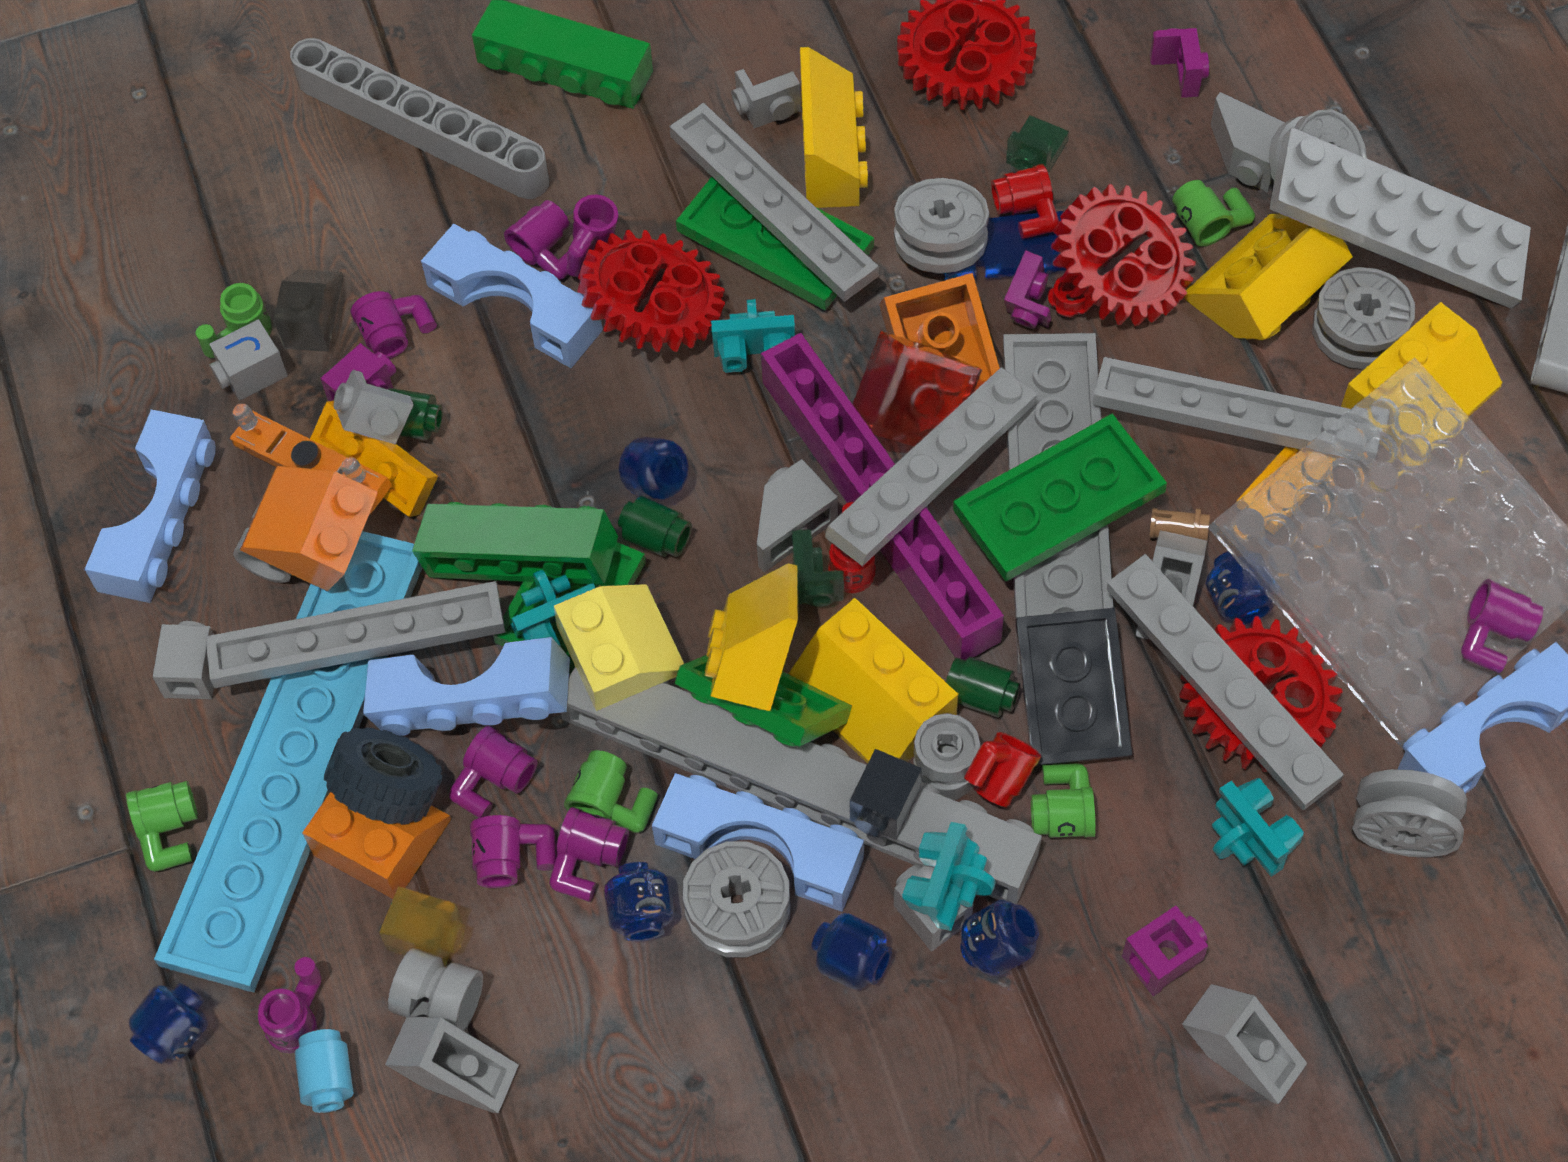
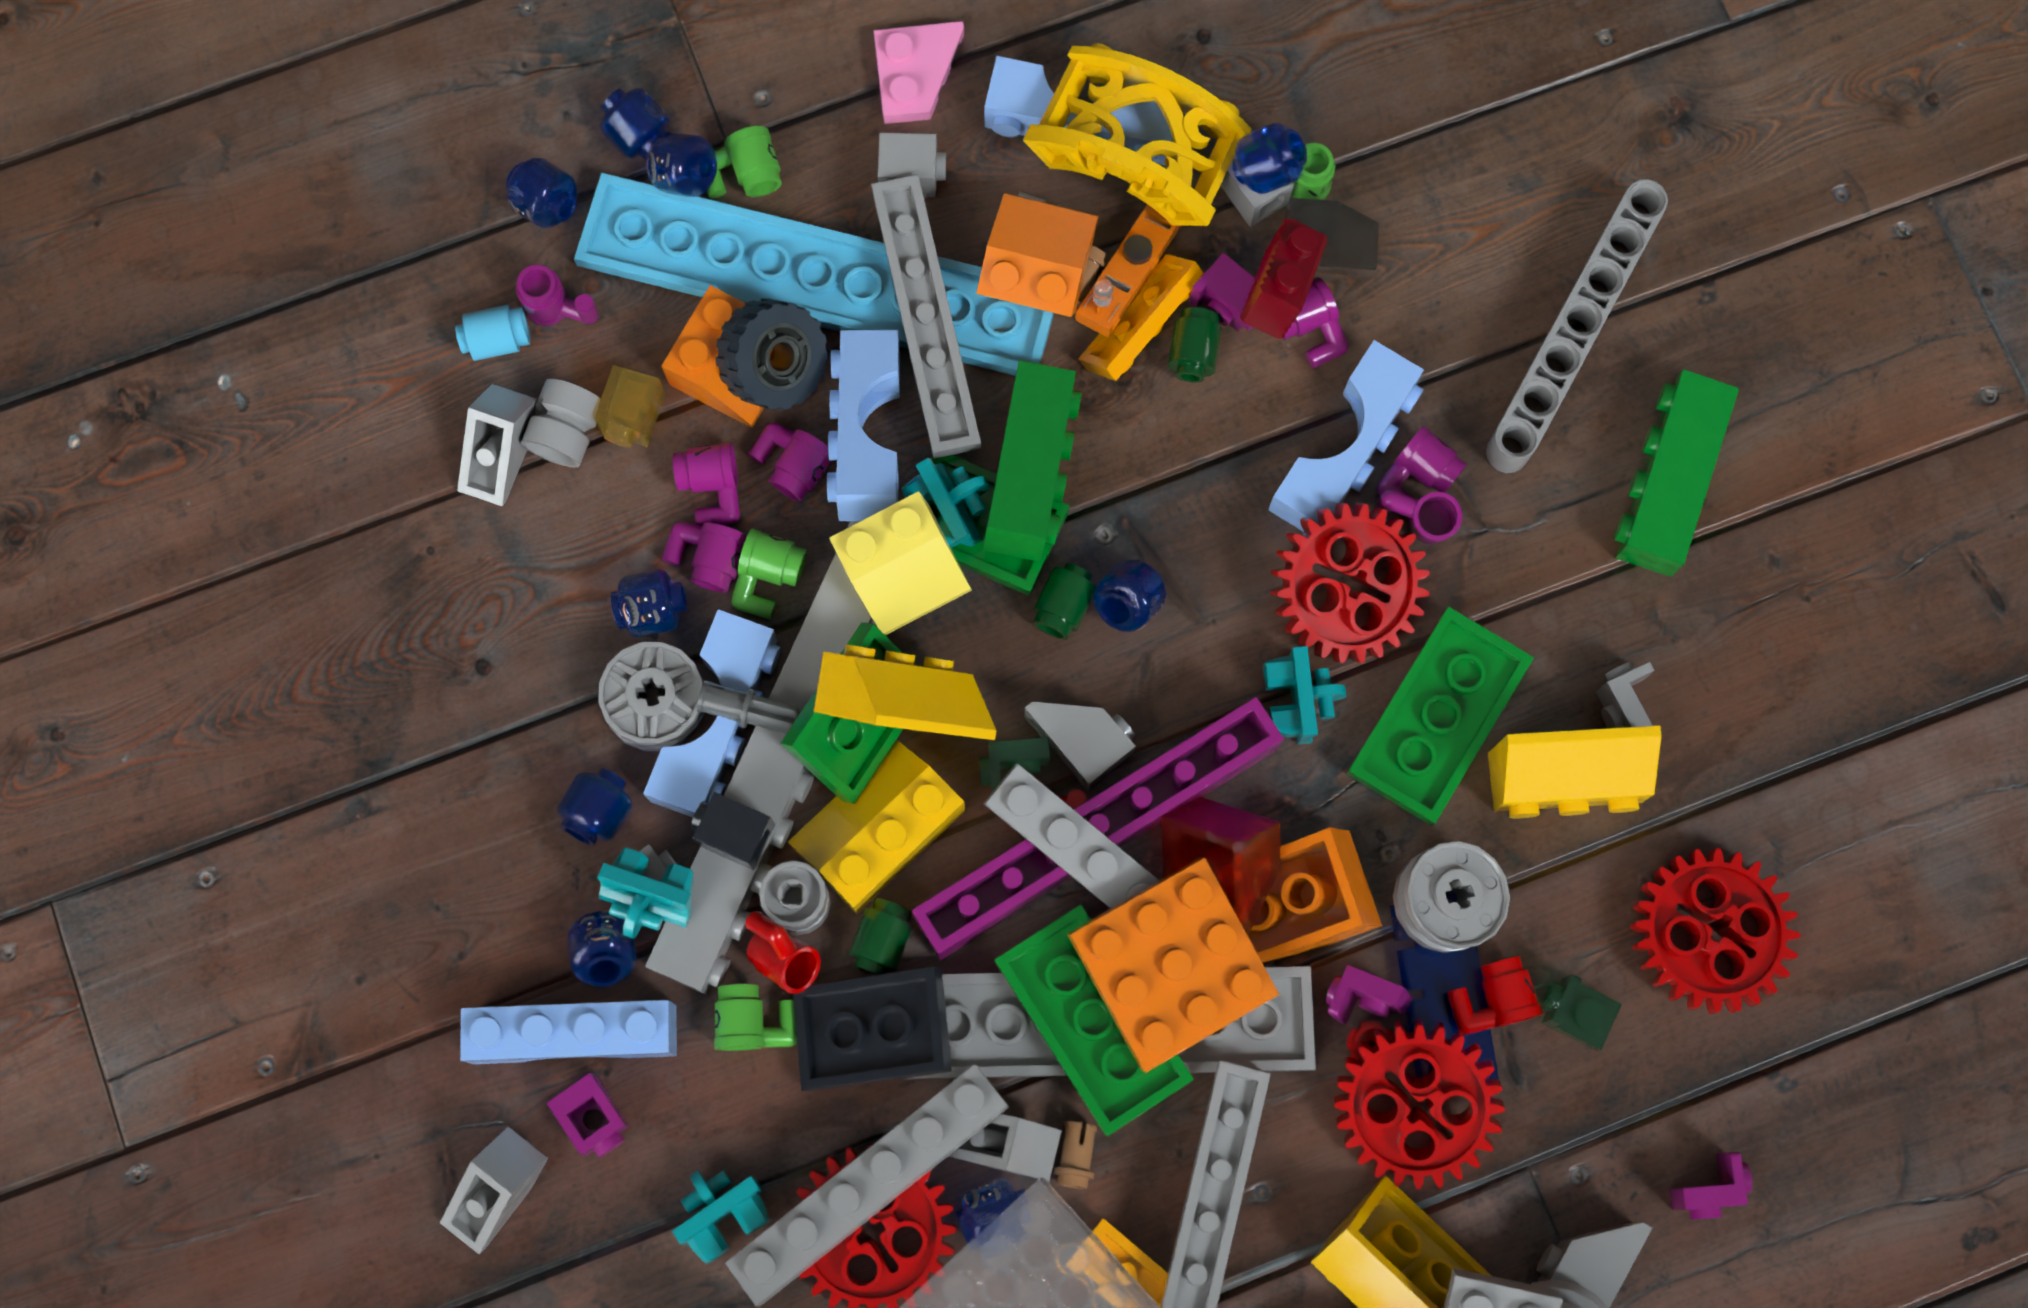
camera: 85 degrees right, 15 degrees up
(77, 663) = (914, 67): none -> bright pink wing
(100, 927) = (633, 121): none -> clear blue head
(158, 871) = (682, 164): none -> clear blue head
(183, 382) = (1082, 152): none -> yellow fence
(236, 324) = (1269, 158): none -> clear blue head
(358, 317) = (1284, 278): none -> dark red brick
(371, 409) = (1175, 303): light grey bracket -> none
(758, 789) = (746, 707): none -> dark grey axle
(774, 202) = (1468, 708): light grey plate -> none
(1011, 418) = (1173, 964): none -> orange plate
(1085, 970) = (568, 1031): none -> light blue arch
(1206, 215) = (1488, 1204): bright green piece -> none

